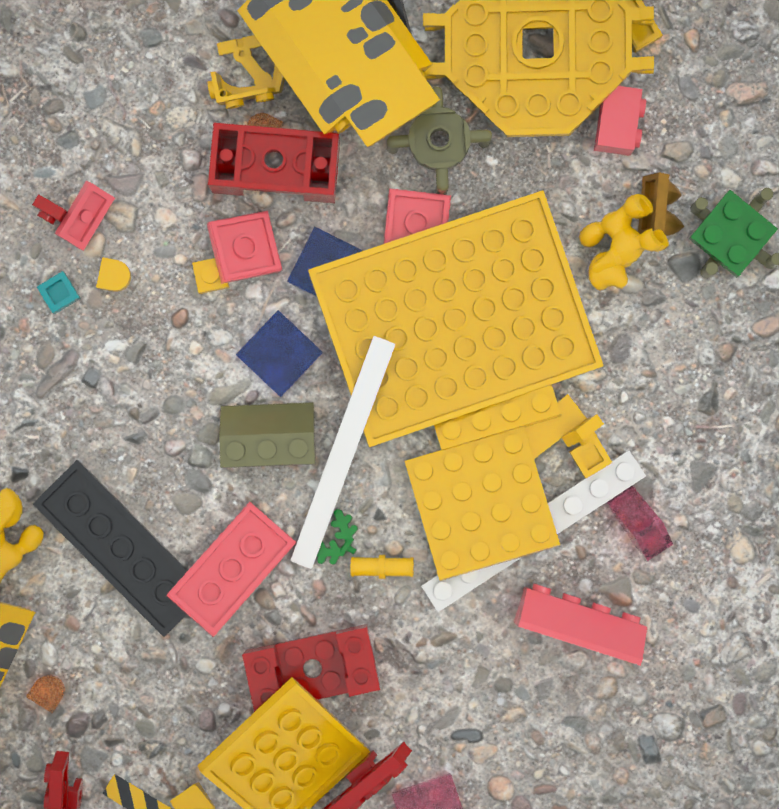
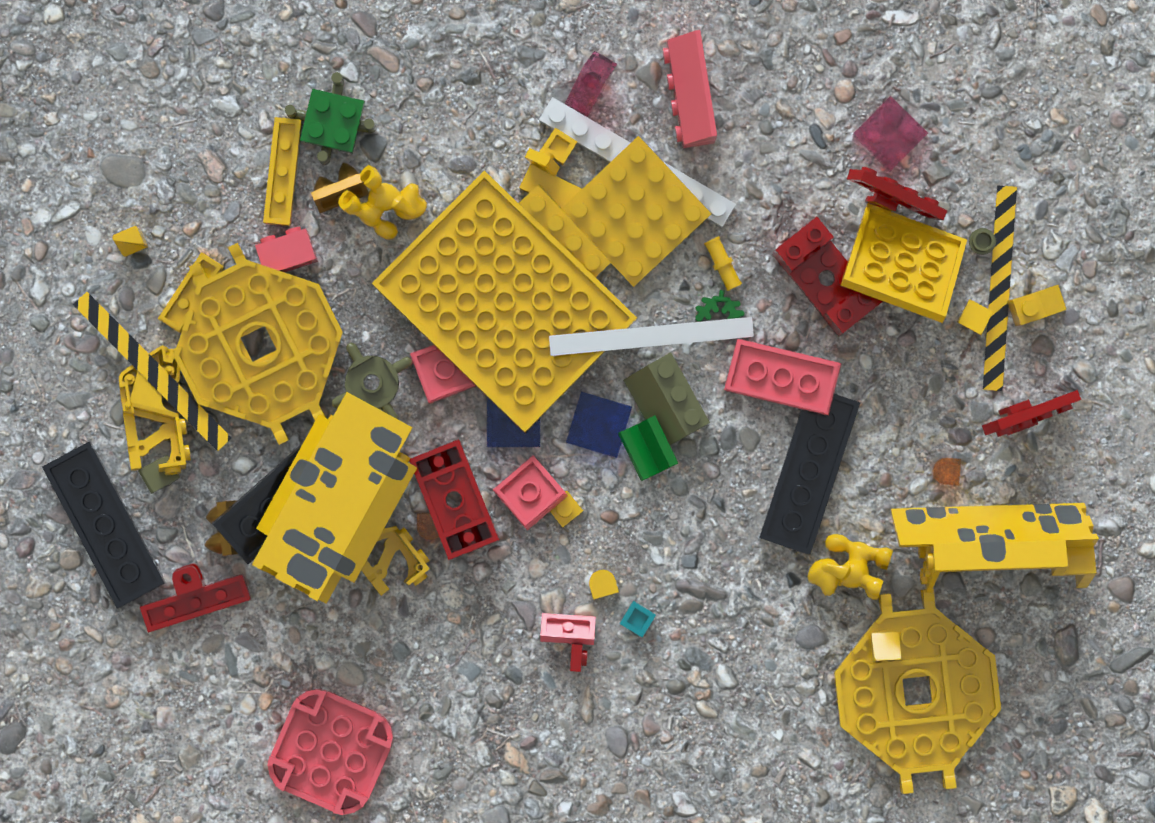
camera: 115 degrees left, 0 degrees up
(228, 390) = (648, 448): none -> green panel
(705, 157) = (282, 171): none -> yellow plate

